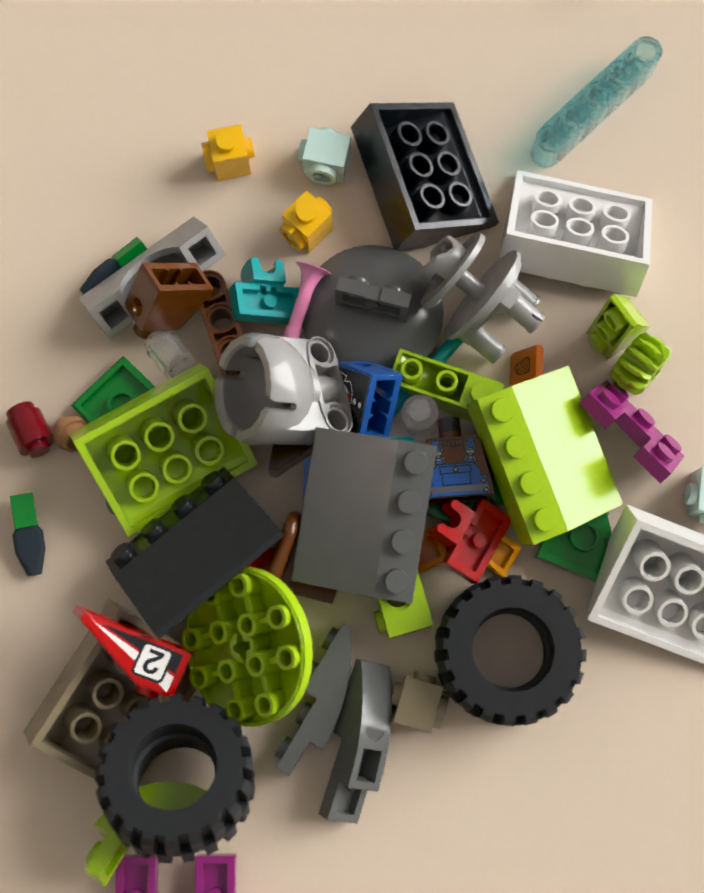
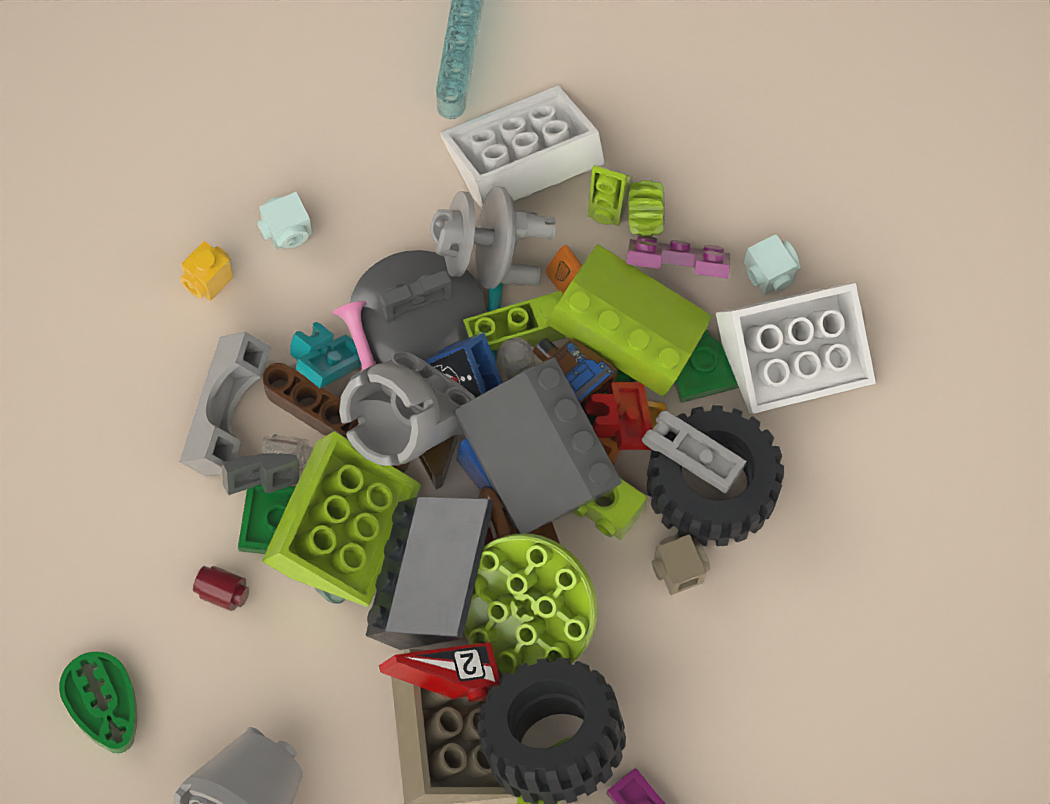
camera: 40 degrees left, 10 degrees down
(28, 536) = (284, 665): black piece -> none
(63, 428) = (253, 568): medium nougat plate -> none
(110, 266) = (185, 414): piece -> none
(142, 361) = (270, 470): none -> dark grey slope
(166, 296) = (255, 407): reddish brown torso -> none
(306, 222) = (312, 280): yellow brick -> none
(328, 685) = (613, 608): dark grey slope -> none
(364, 745) = (658, 607): dark grey slope -> none
(422, 172) = (370, 183): black slope -> none
(500, 624) = (695, 451): none -> light grey plate

